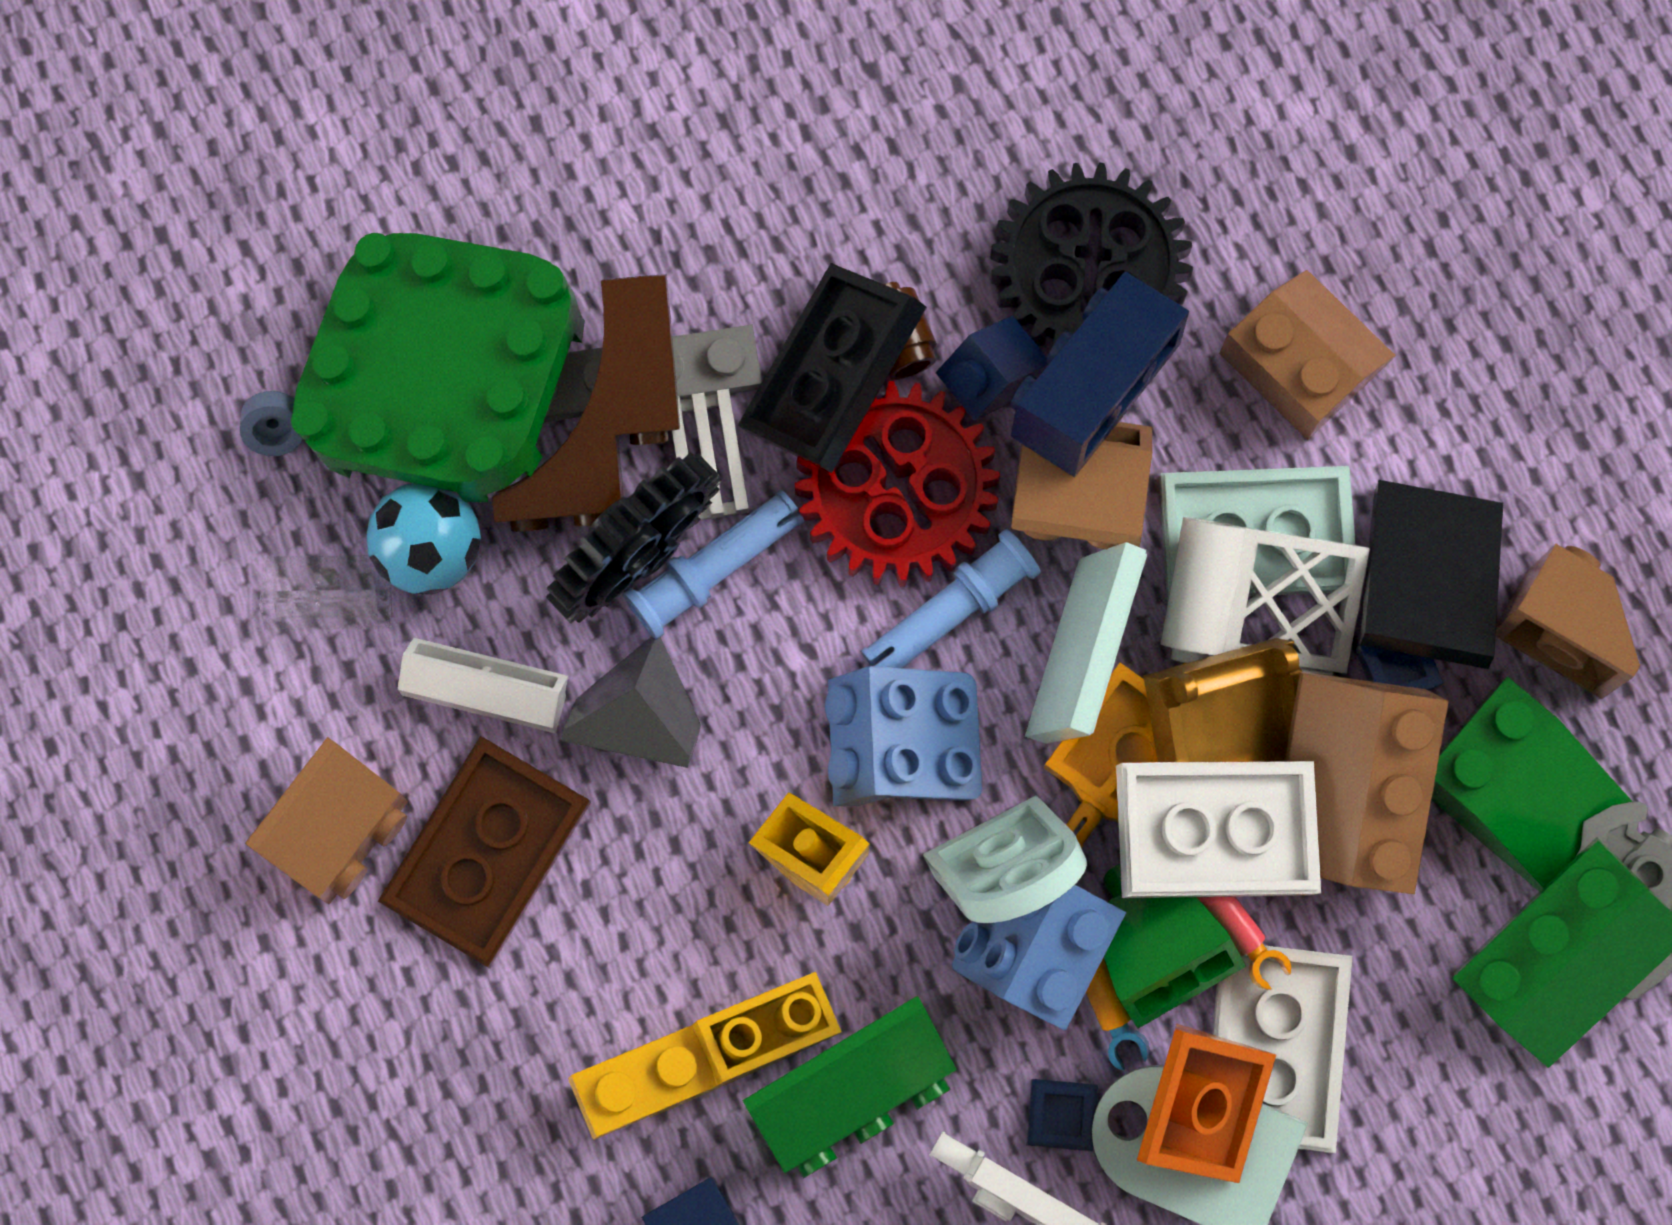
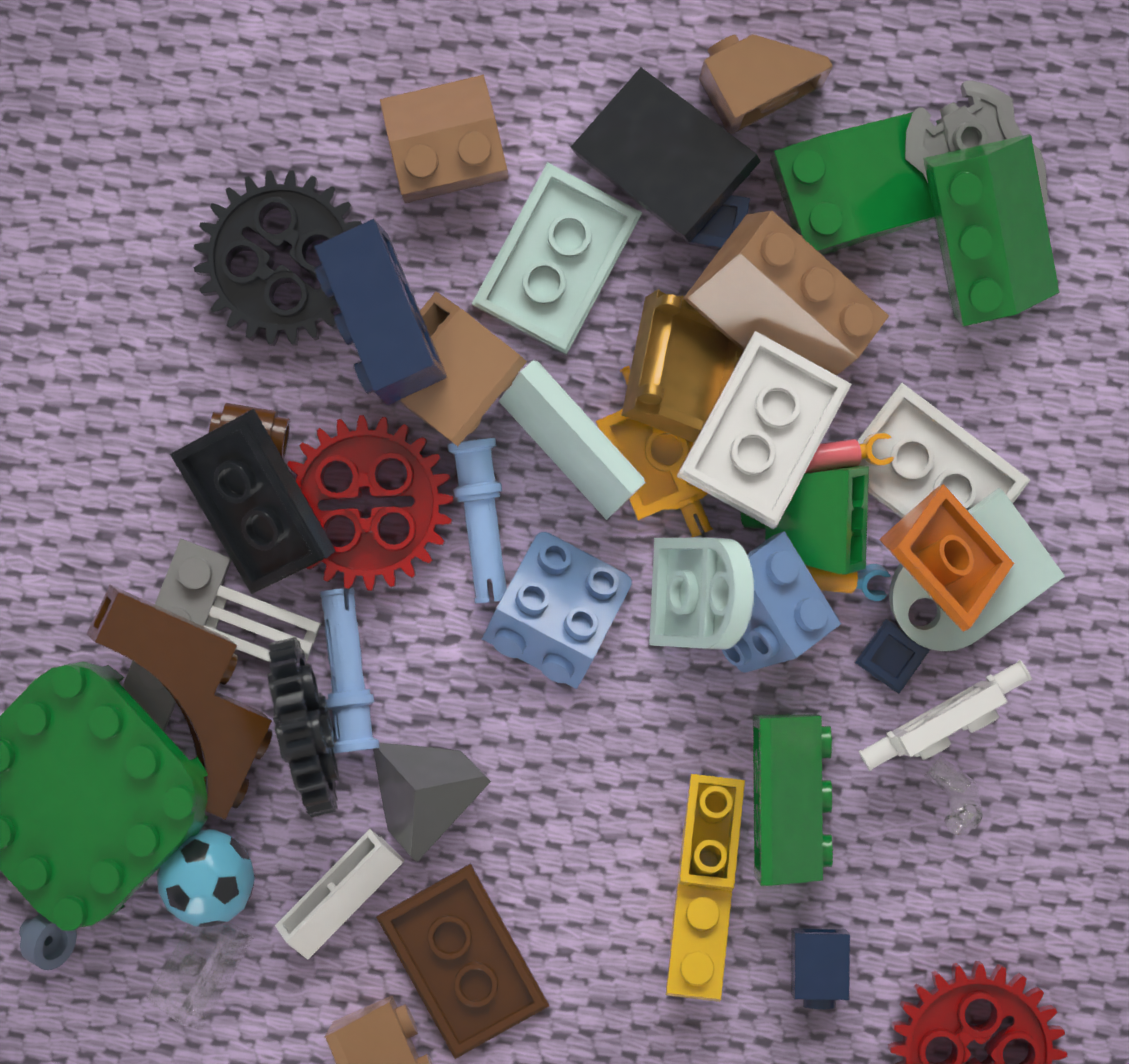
camera: 60 degrees left, 10 degrees up
(810, 848) = (602, 728): yellow slope -> none
(991, 367) = (322, 381): dark blue brick -> none
(1214, 584) = (584, 322): white piece -> none

